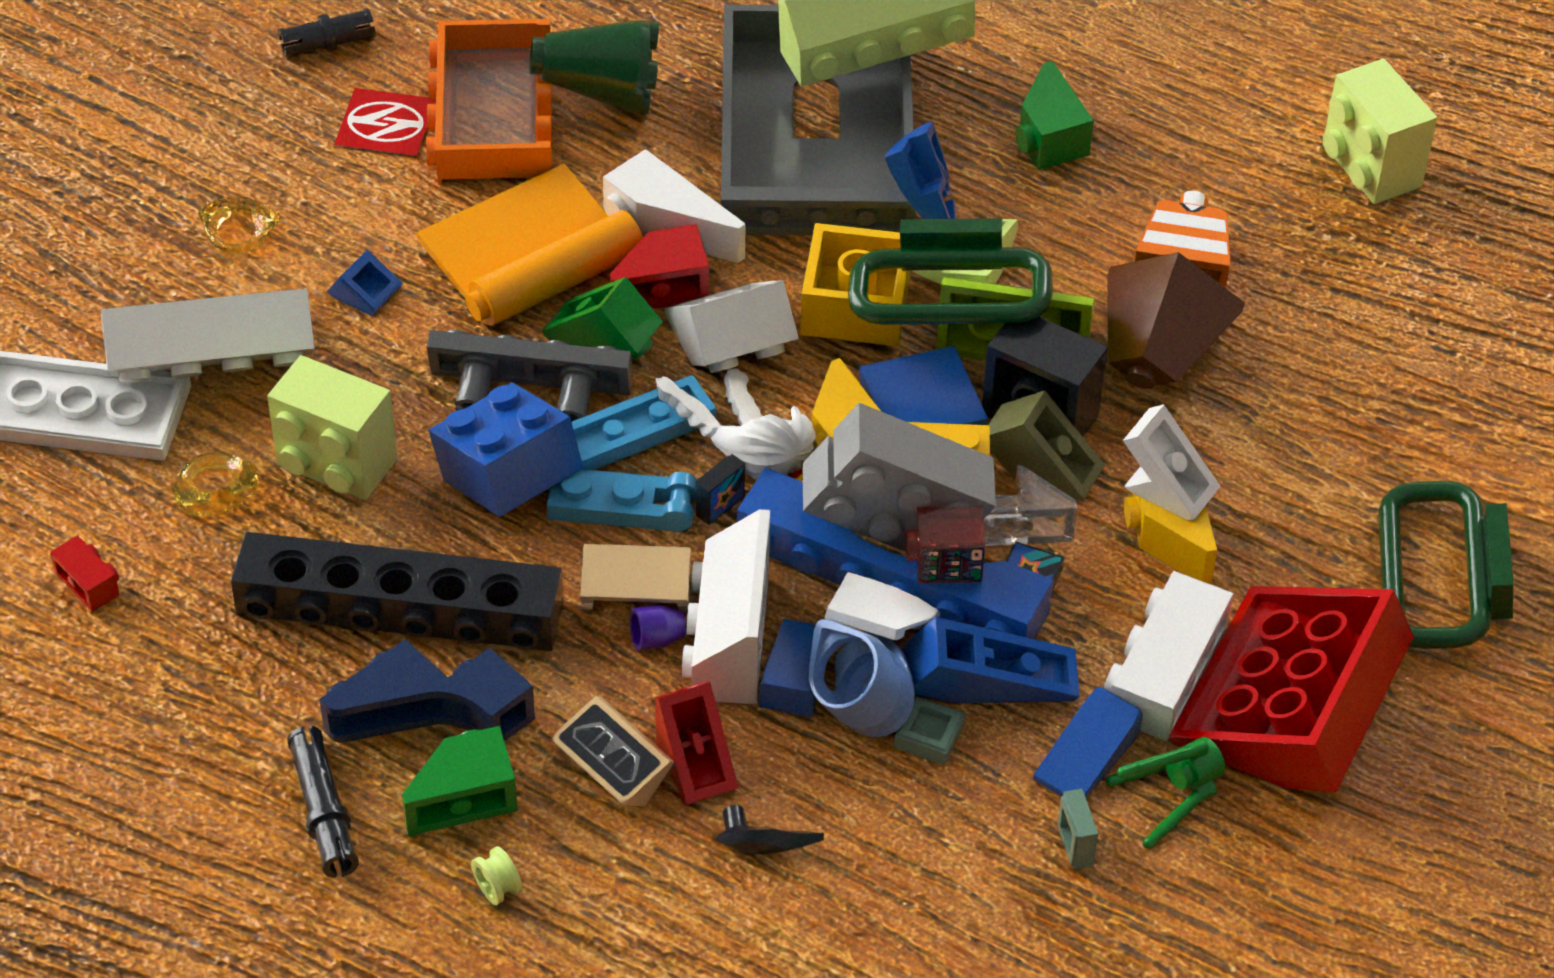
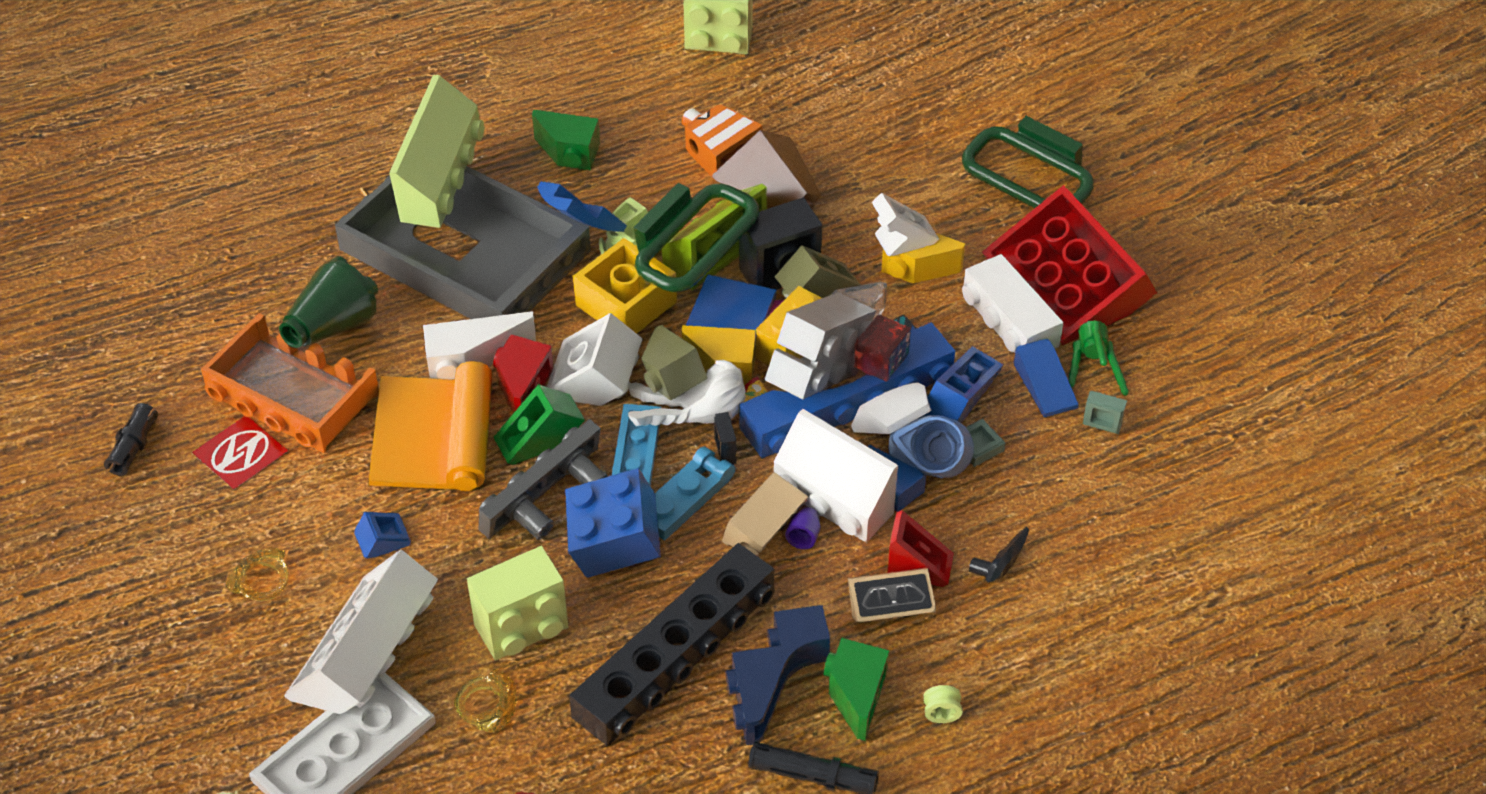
camera: 55 degrees left, 0 degrees up
(776, 377) = (671, 364): none -> olive slope

